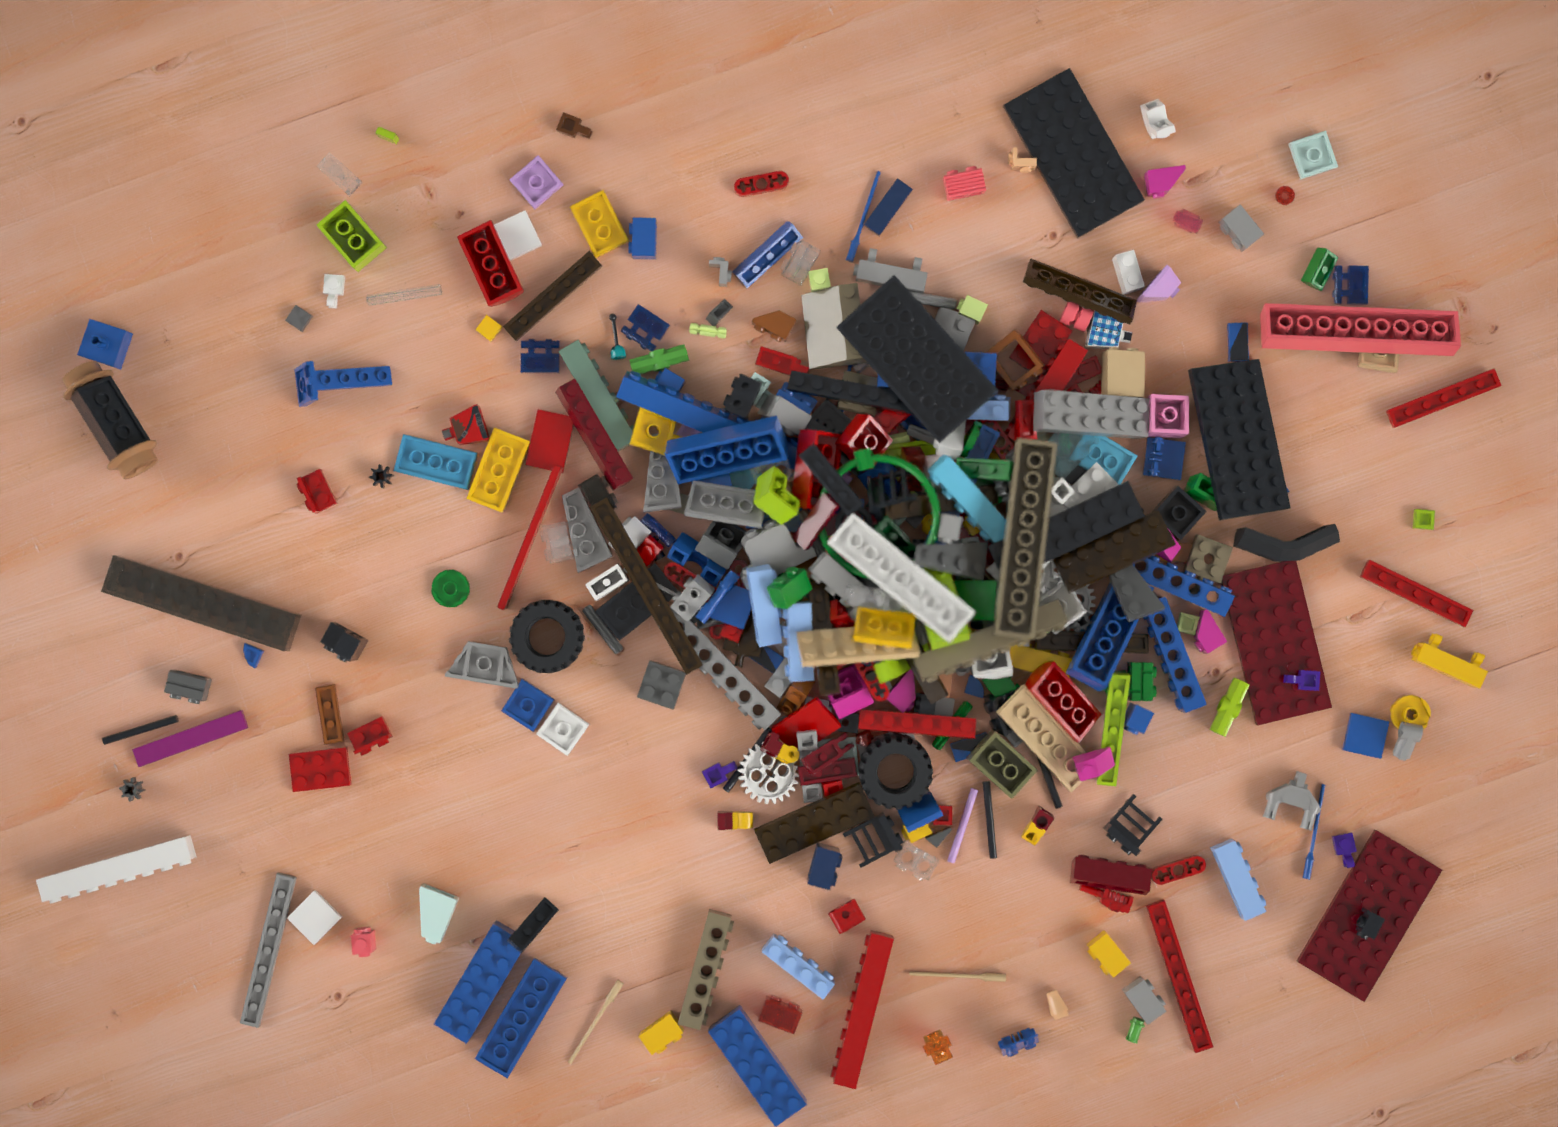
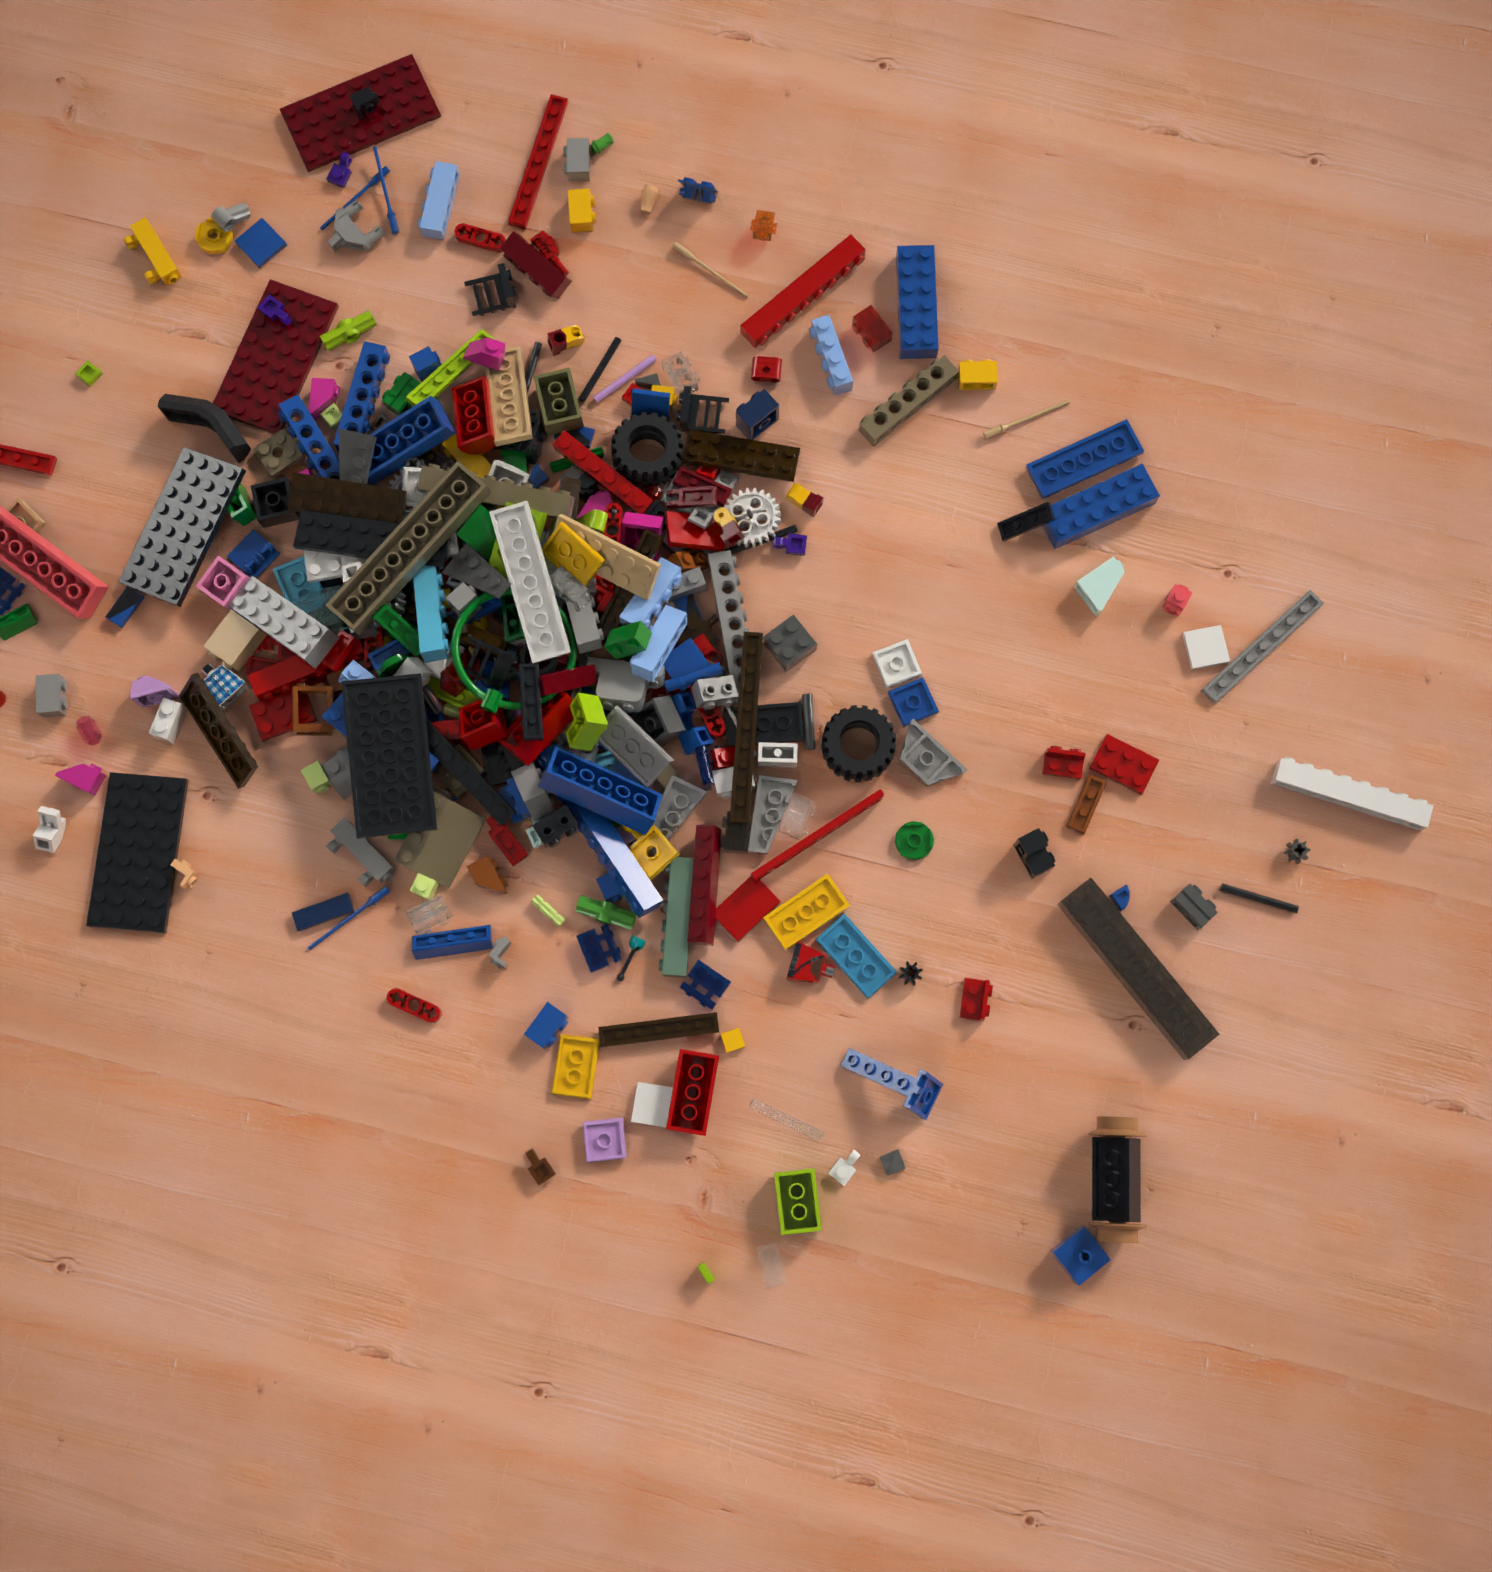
camera: 145 degrees left, 10 degrees down
(190, 738) = (1220, 862): magenta tile -> none
(719, 312) = (528, 919): dark grey piece -> none
(934, 300) = (348, 813): light grey axle -> none
(964, 184) = (245, 886): coral brick -> none
(1076, 315) = (236, 713): coral wheel -> none
(1271, 837) = (391, 215): none -> blue piece
(1416, 593) = (138, 321): red plate -> none

